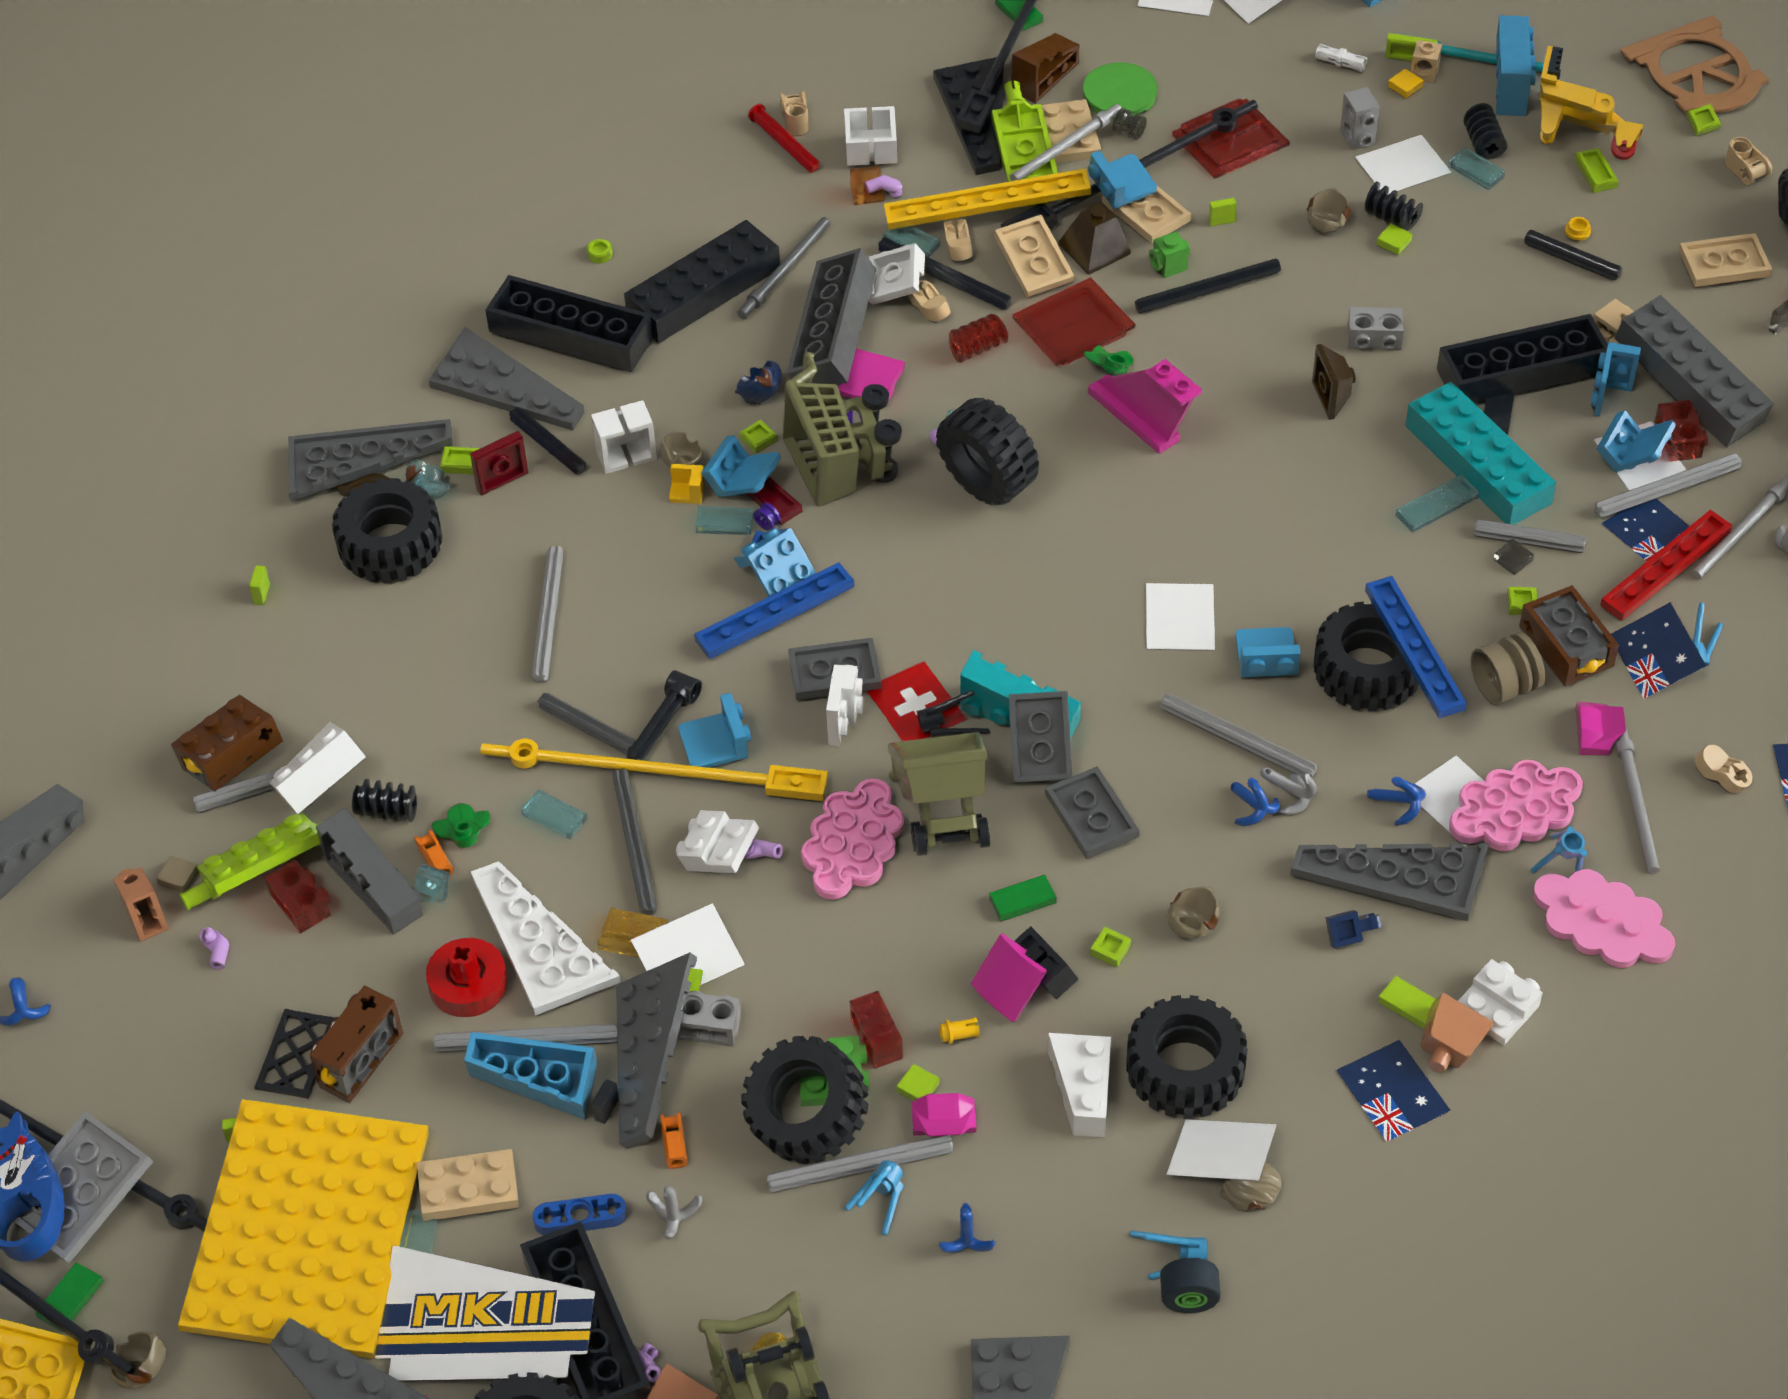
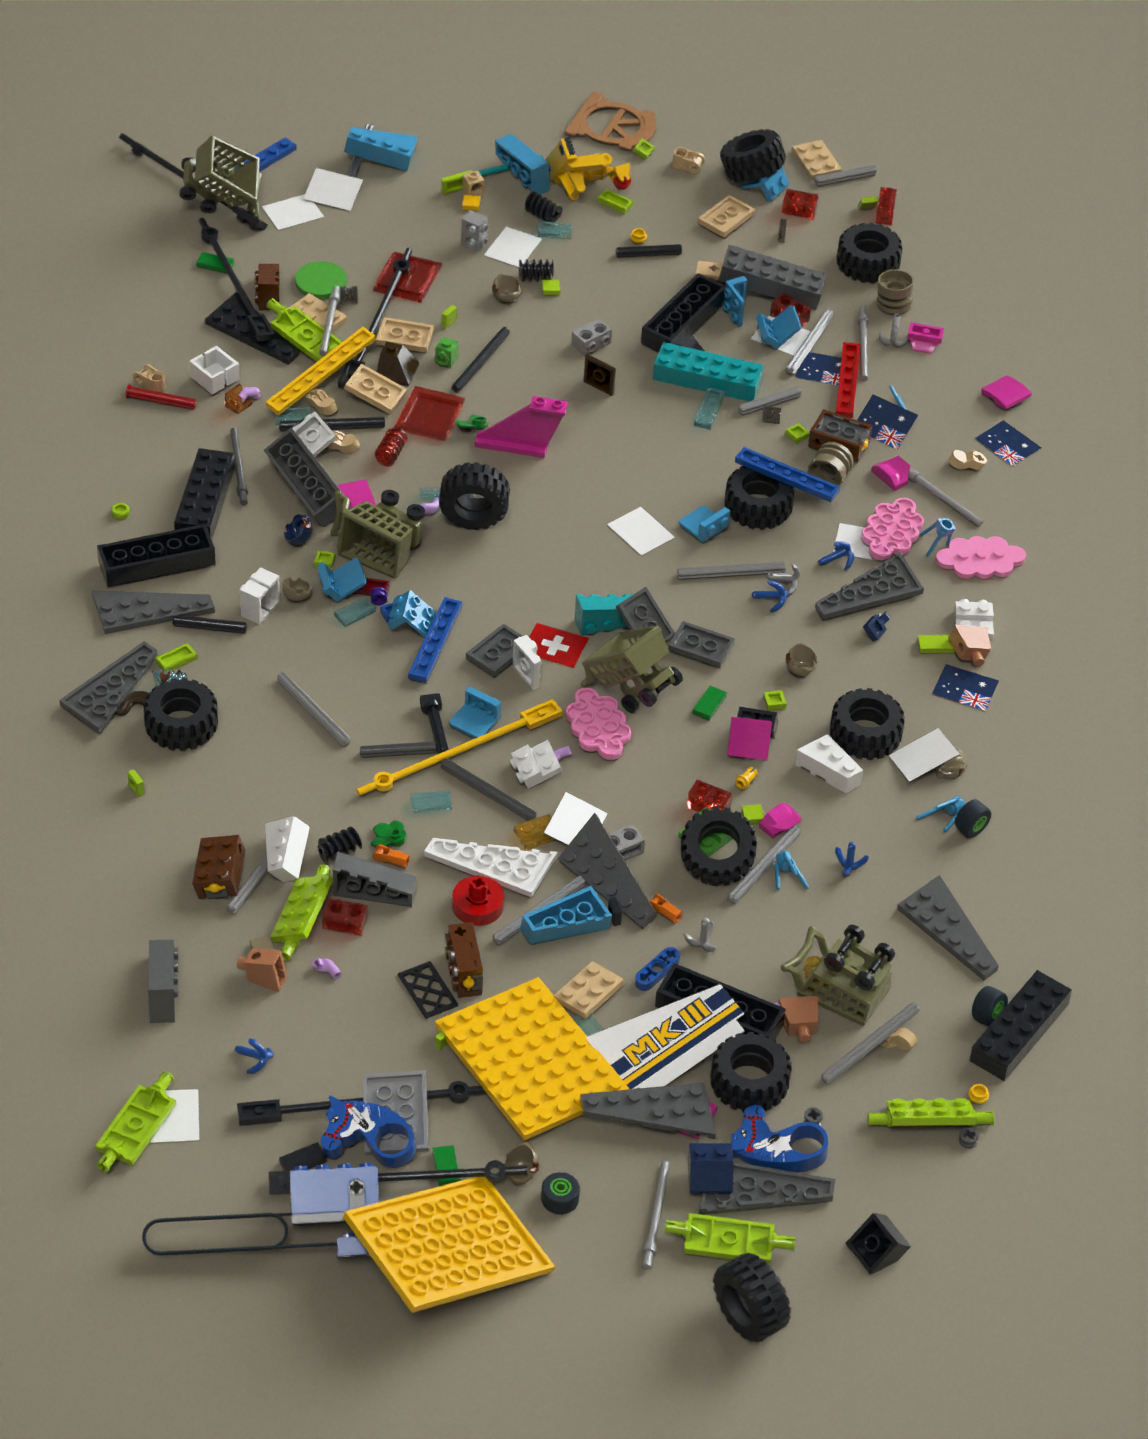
camera: 45 degrees left, 5 degrees down
(432, 883) = (410, 866): clear light blue plate -> none
(499, 463) = (205, 646): dark red tile -> none
(686, 484) = (316, 603): yellow panel -> none
(932, 718) = (576, 643): black plant -> none
(1121, 179) = (383, 324): dark azure bracket -> none
(1341, 58) = (423, 205): white pin -> none

